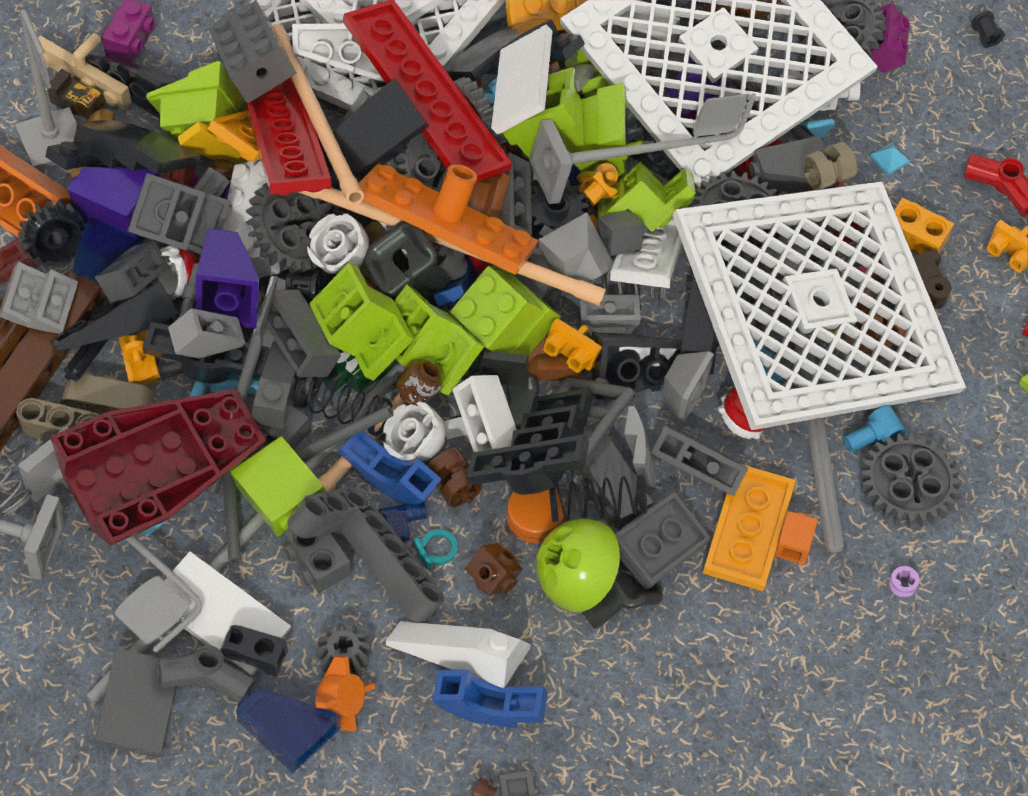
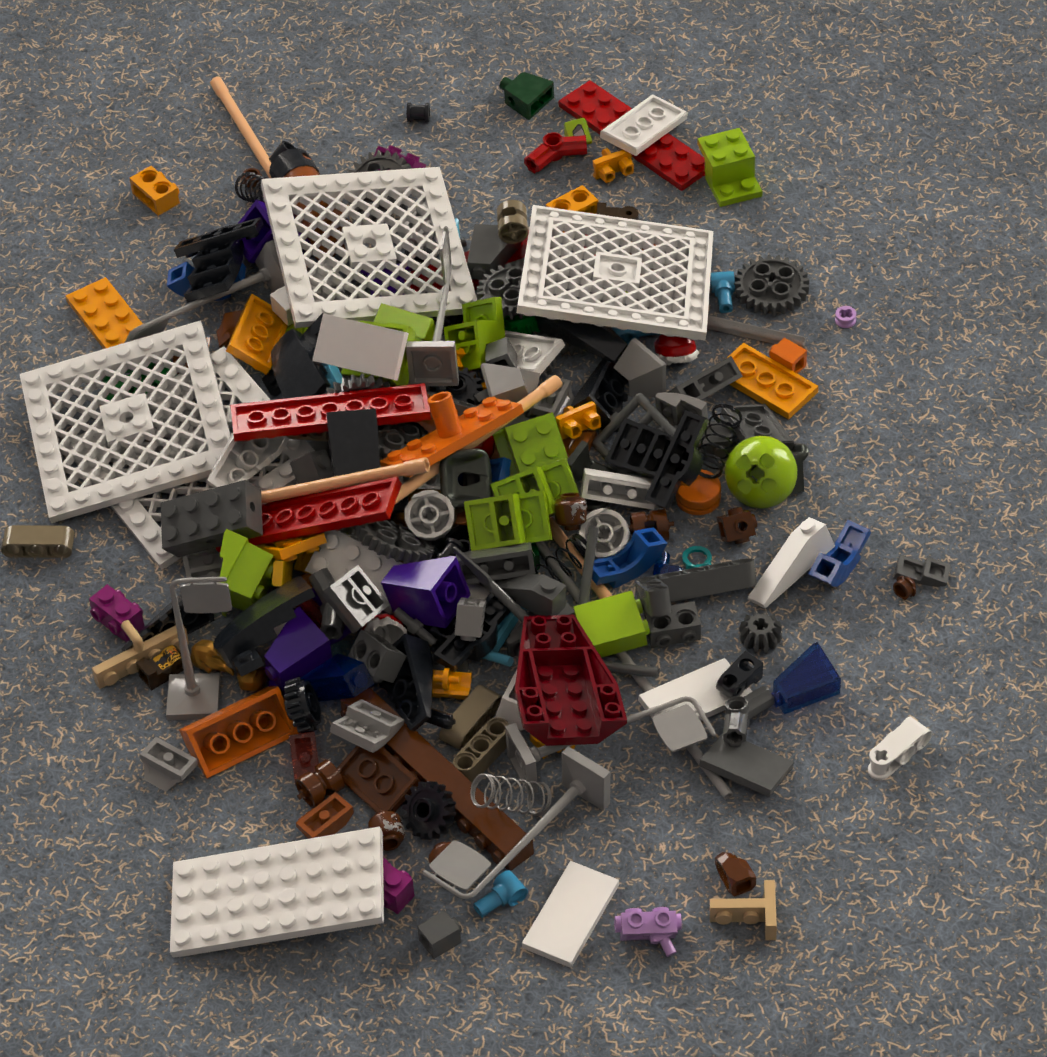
camera: 60 degrees left, 10 degrees down
(342, 692) = (791, 639): orange piece -> none
(889, 158) = (493, 203): medium azure slope -> none

